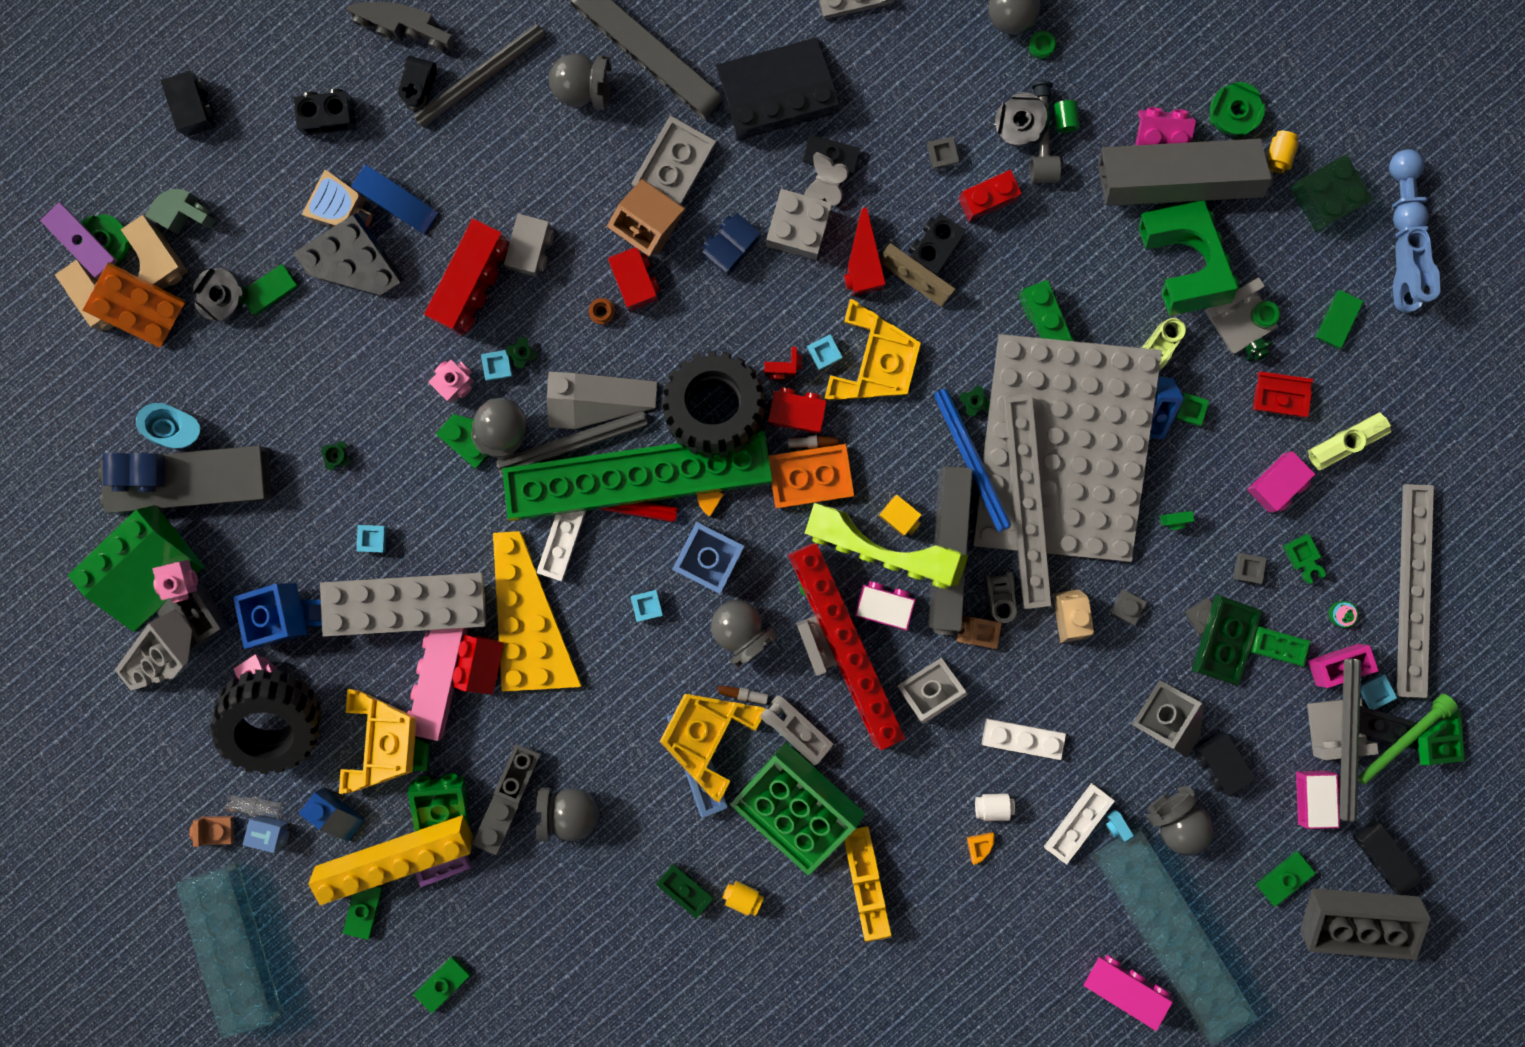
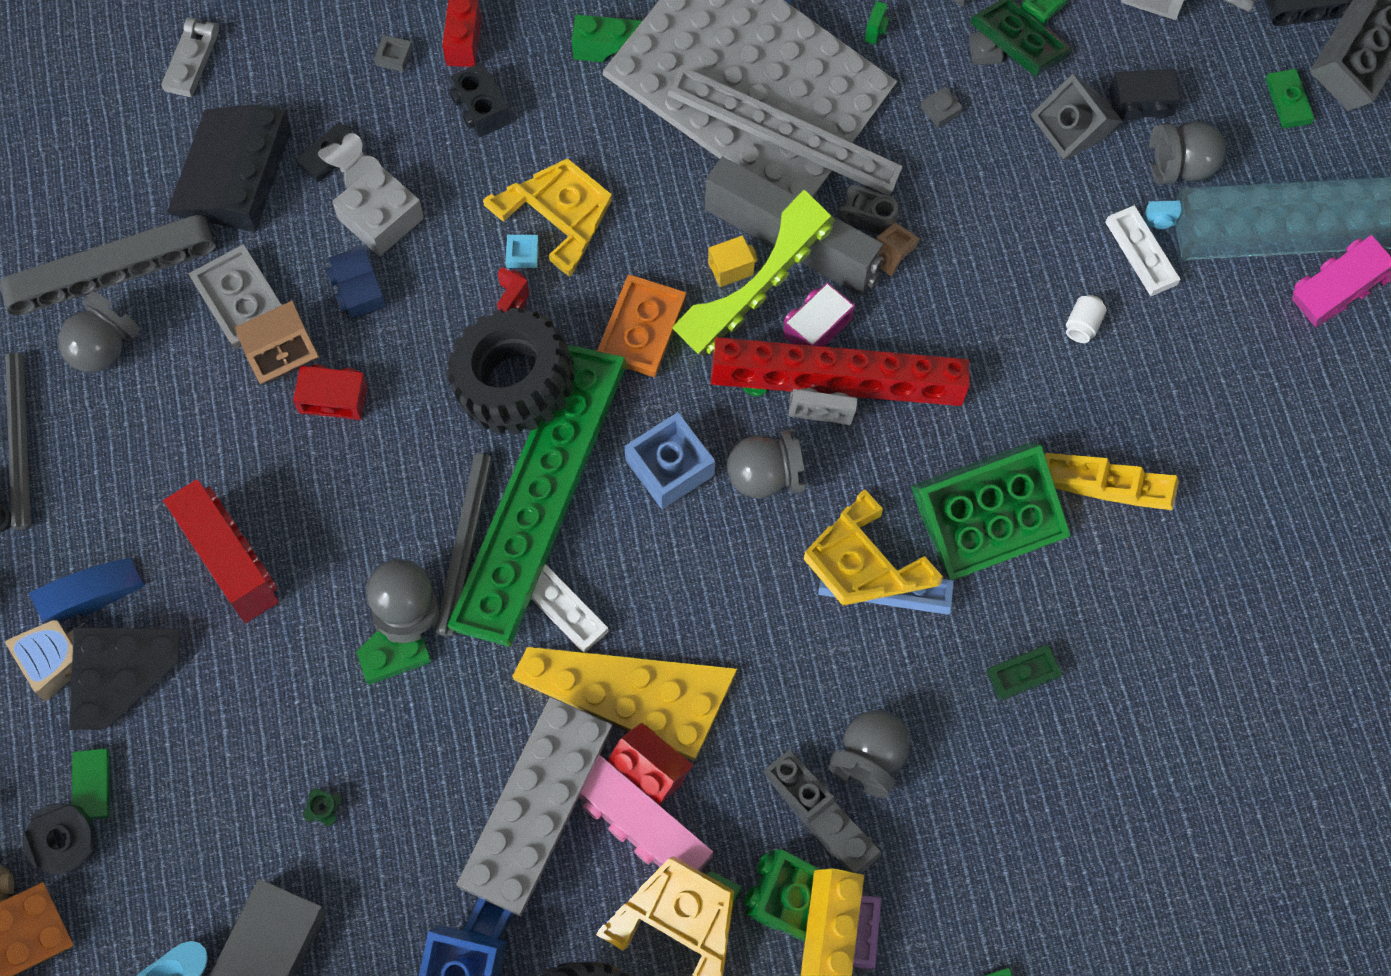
camera: 65 degrees left, 20 degrees down
(371, 538) = (439, 814): medium azure plate -> none
(443, 380) = (320, 629): bright pink brick -> none
(496, 365) = (333, 577): medium azure plate -> none
(513, 352) = (335, 545): dark green plate -> none
(529, 245) = (231, 481): light grey brick -> none
(590, 399) = (427, 500): light grey wedge -> none
(598, 303) = (340, 435): dark orange plate -> none
(646, 605) = (685, 554): medium azure plate -> none
(647, 510) = (581, 505): red axle -> none
(709, 501) = (609, 437): light orange tile -> none
(742, 898) = (1063, 614): yellow brick -> none
(743, 694) = (836, 506): light grey piece -> none
(797, 411) = (569, 301): red brick -> none
(797, 730) = (903, 468): light grey plate -> none
(812, 442) = (605, 310): light grey piece -> none
(864, 266) = (456, 171): red slope -> none
(916, 275) = (497, 131): dark tan tile -> none
(932, 690) = (932, 318): light grey slope -> none
(967, 400) = (655, 149): dark green plate -> none
(972, 460) = (705, 163): blue axle -> none
(980, 846) = (1121, 356): light orange tile -> none
(1023, 739) = (1027, 262): white plate -> none
(1073, 615) = (926, 151): tan torso -> none
(1318, 799) = (1221, 32): white brick -> none

